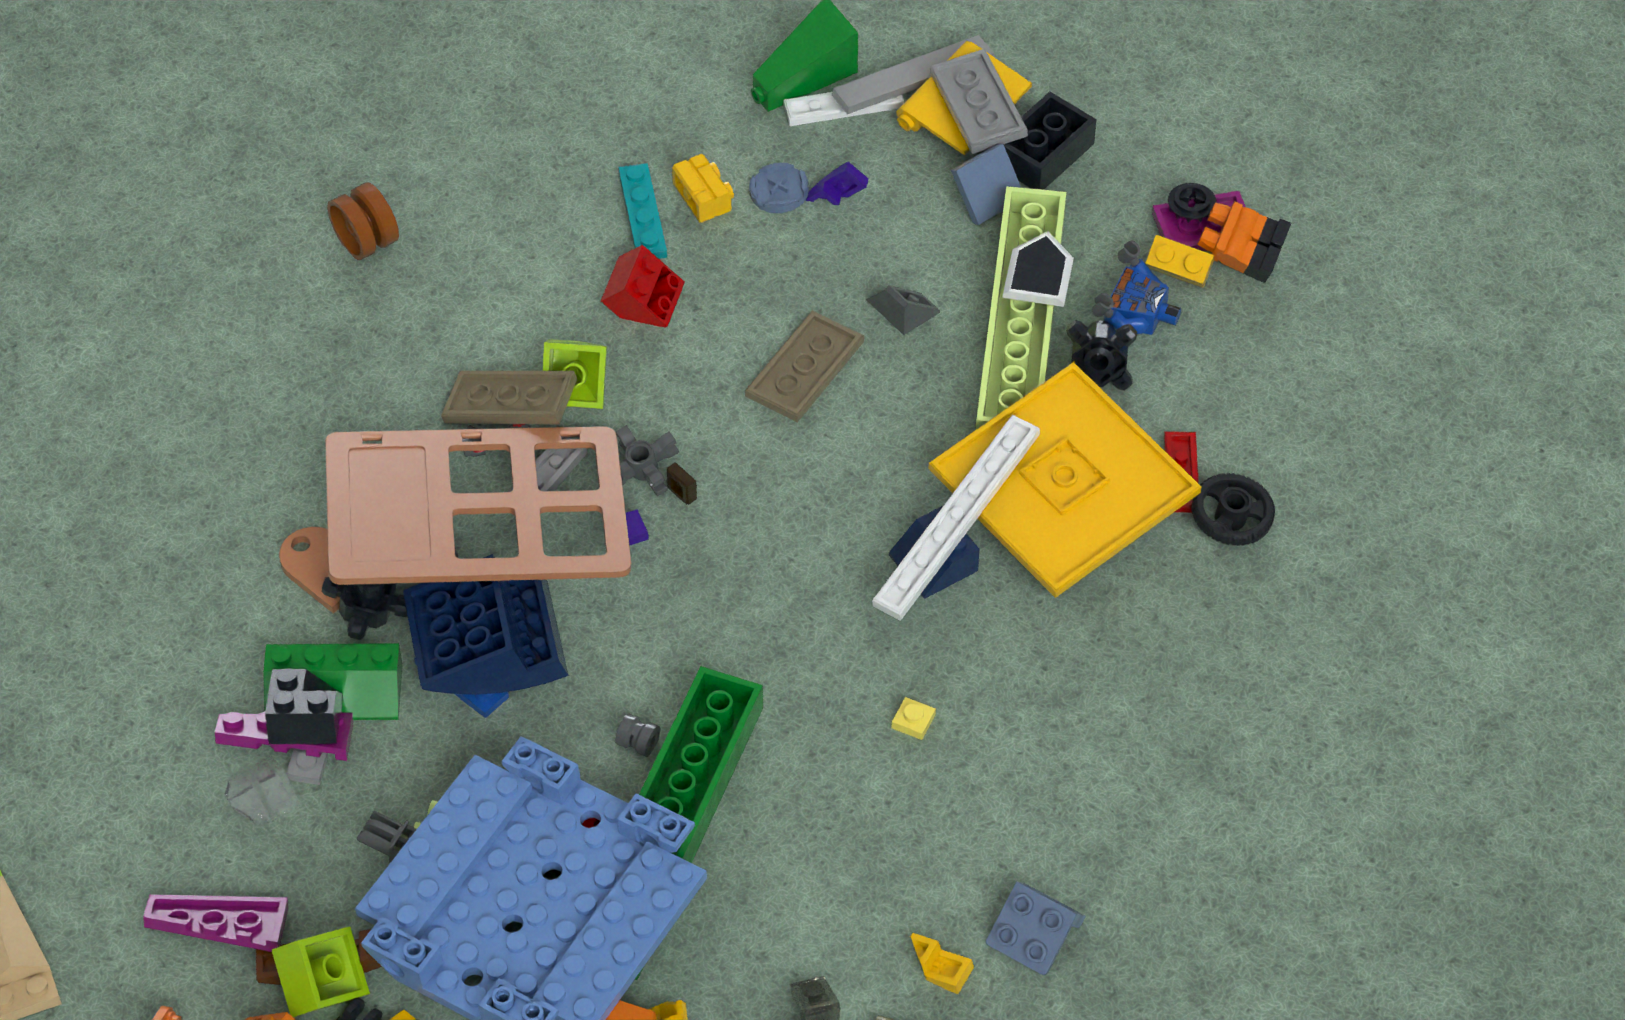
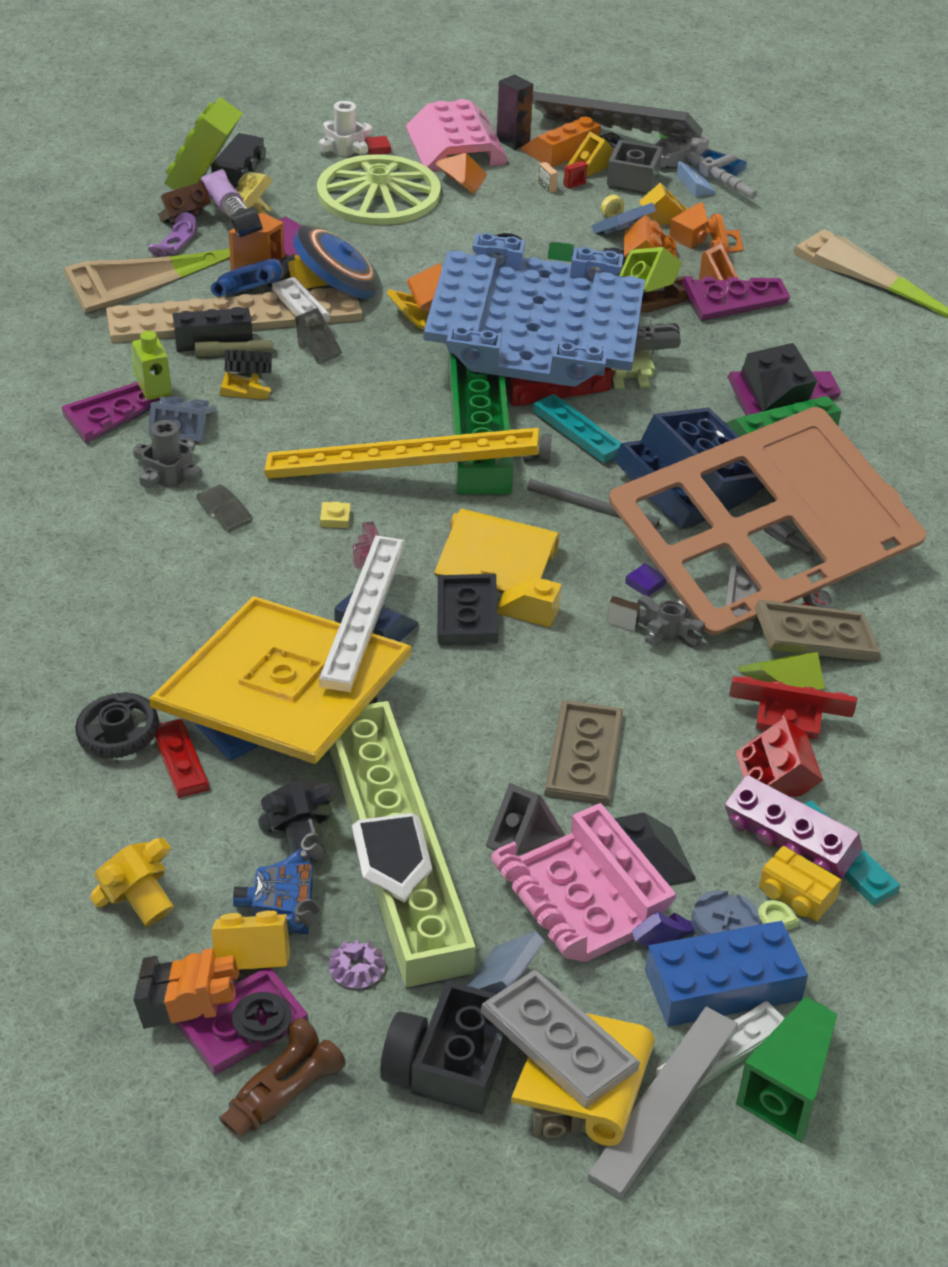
camera: 155 degrees right, 10 degrees down
(202, 979) = (716, 264): none -> orange slope
(566, 734) = (577, 427): none -> teal plate
(593, 328) = (797, 704): none -> red bracket
(620, 647) = (579, 499): none -> dark grey piece
(678, 221) = (792, 824): none -> brick
(738, 178) = (776, 911): none -> yellowish green tile
(763, 604) = (497, 547): none -> yellow door
(767, 526) = (532, 601): none -> yellow slope
(805, 256) = (658, 846): none -> black slope
(811, 136) = (725, 972): none -> blue brick
(816, 727) = (403, 453): none -> yellow plate
(834, 542) = (467, 608): none -> black plate
(889, 231) = (587, 885): none -> bright pink slope
(900, 642) = (361, 549): none -> clear pink bracket
(946, 974) = (248, 361): none -> black tyre
(1035, 761) = (225, 507): none -> clear smoke slope
(1059, 966) = (150, 356): none -> lime torso
(1079, 843) = (167, 458): none -> dark grey piece
(1092, 148) = (401, 1048): none -> black tyre
(1095, 253) = (362, 974): none -> lavender gear
(1128, 967) = (106, 410): none -> magenta wing
(1197, 167) = (266, 1095): none -> reddish brown piece
(1263, 339) = (133, 878): none -> yellow piece

